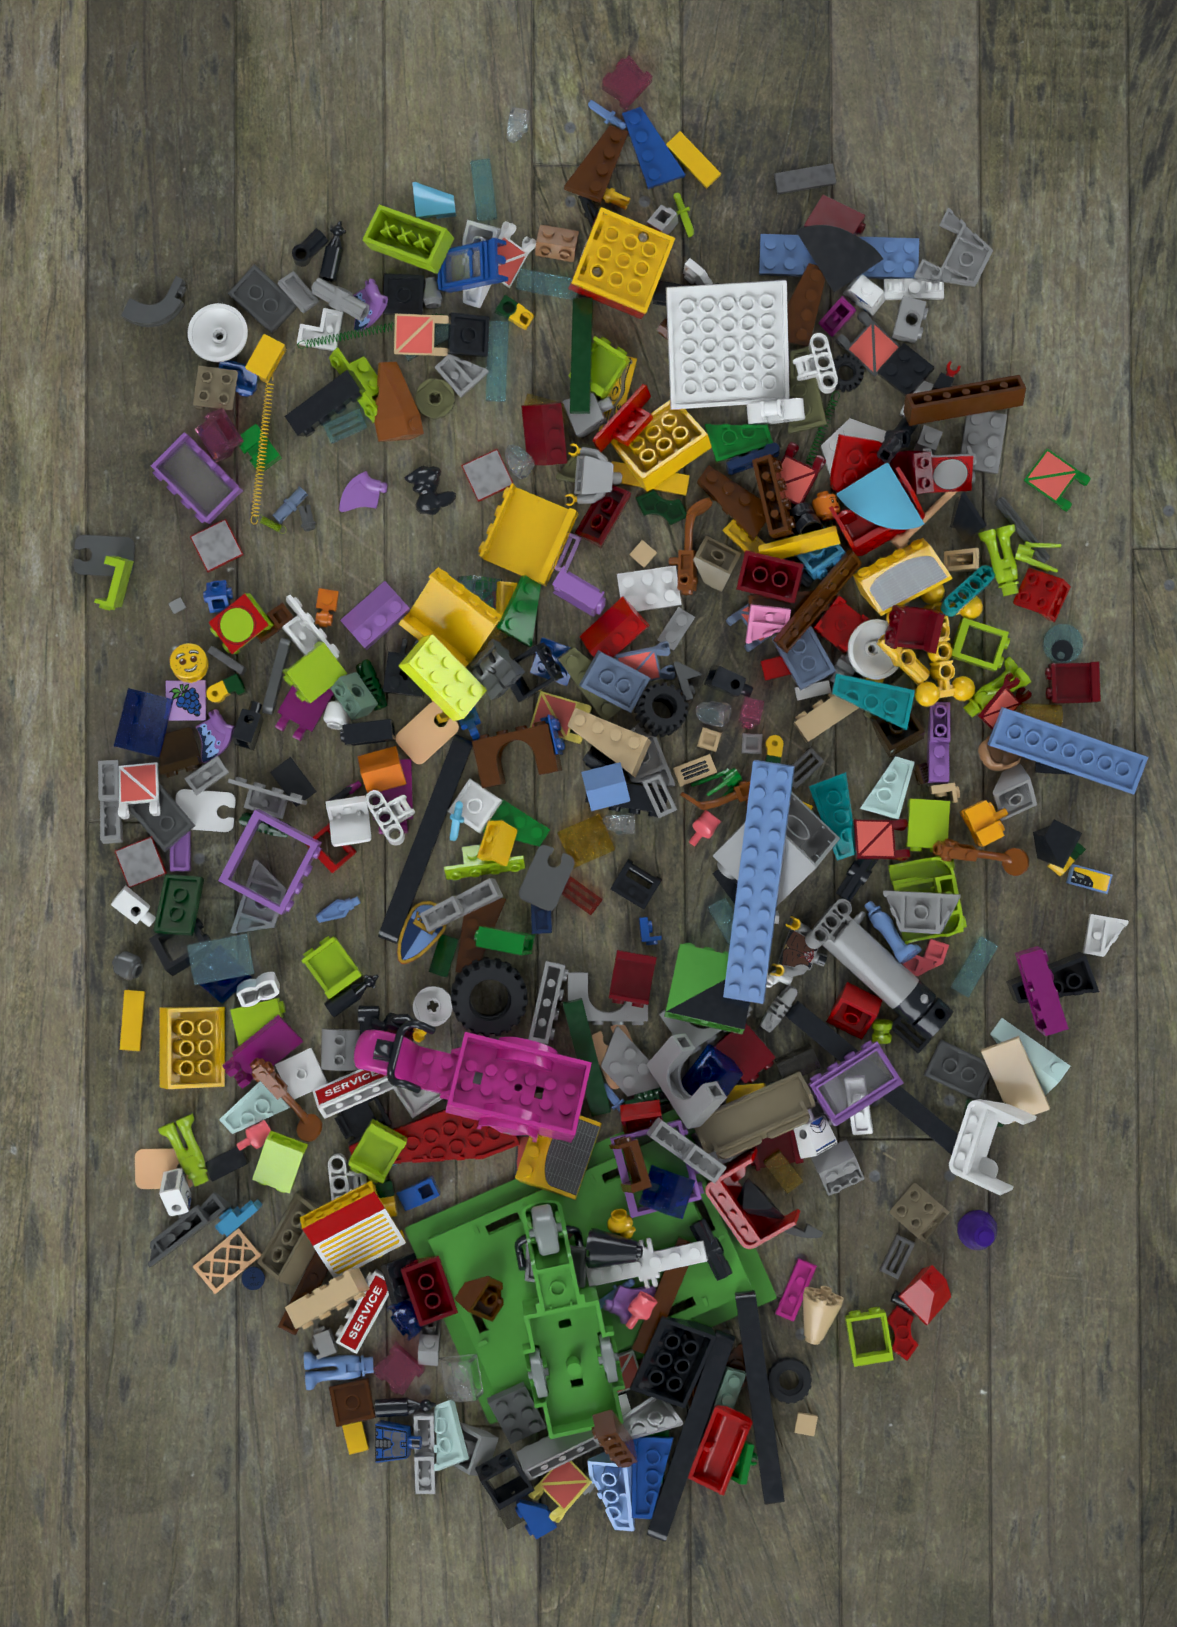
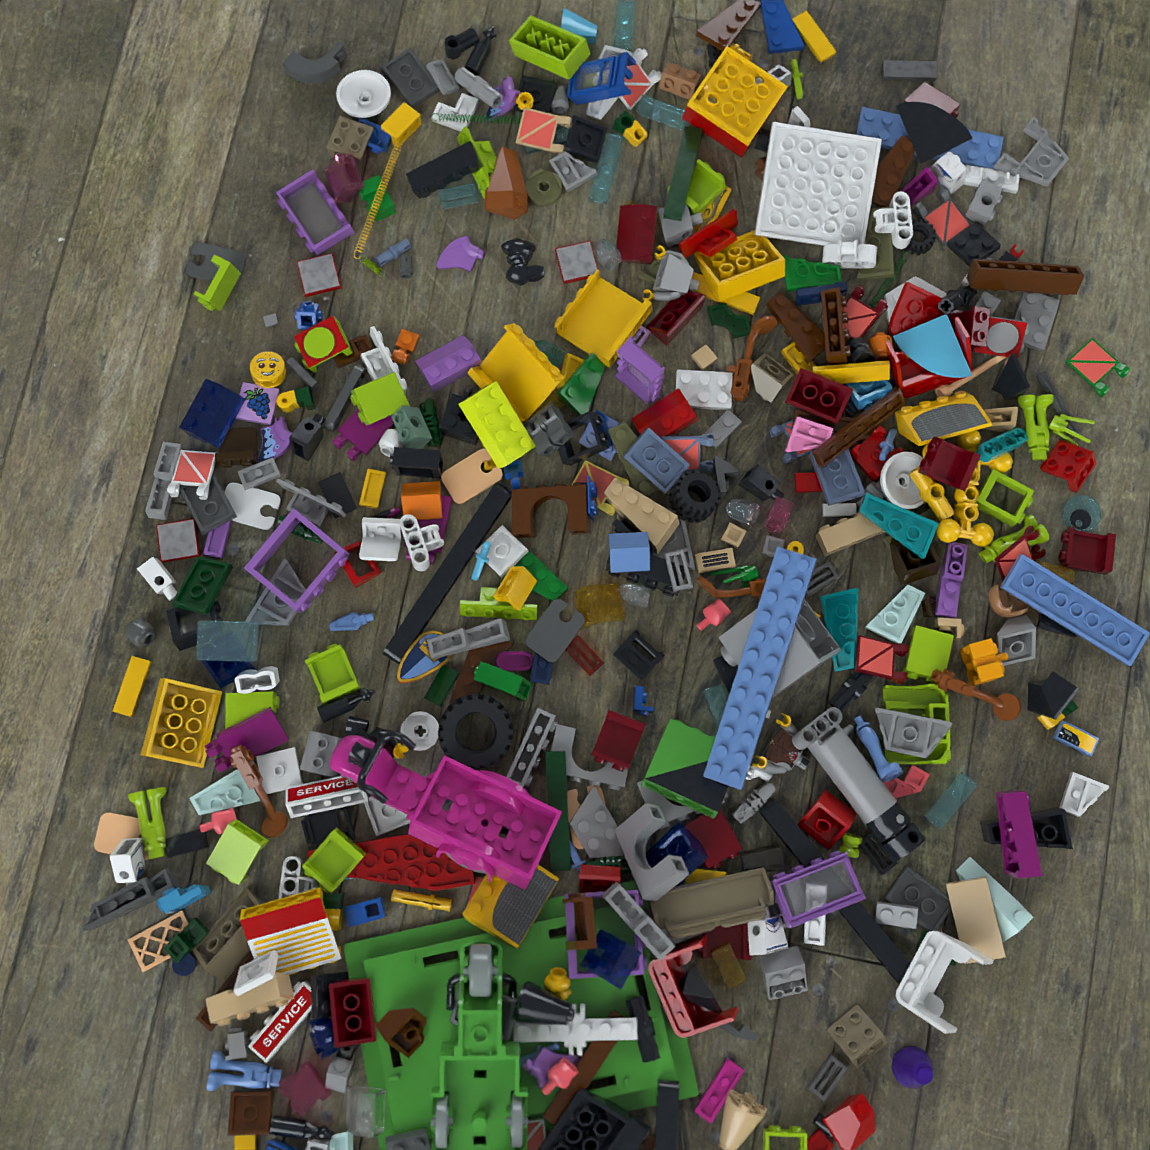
camera: 10 degrees right, 10 degrees down
(250, 1255) = (186, 940): none -> dark green slope
(327, 766) = (372, 488): none -> yellow tile
(329, 1274) = (256, 972): none -> white tile
(389, 305) = (525, 96): none -> yellow plate
(471, 1170) = (431, 902): none -> yellow pin
(511, 916) = (514, 660): none -> magenta tile
(850, 612) = (887, 445): none -> medium blue piece
(938, 1089) = (896, 915): none -> light grey plate

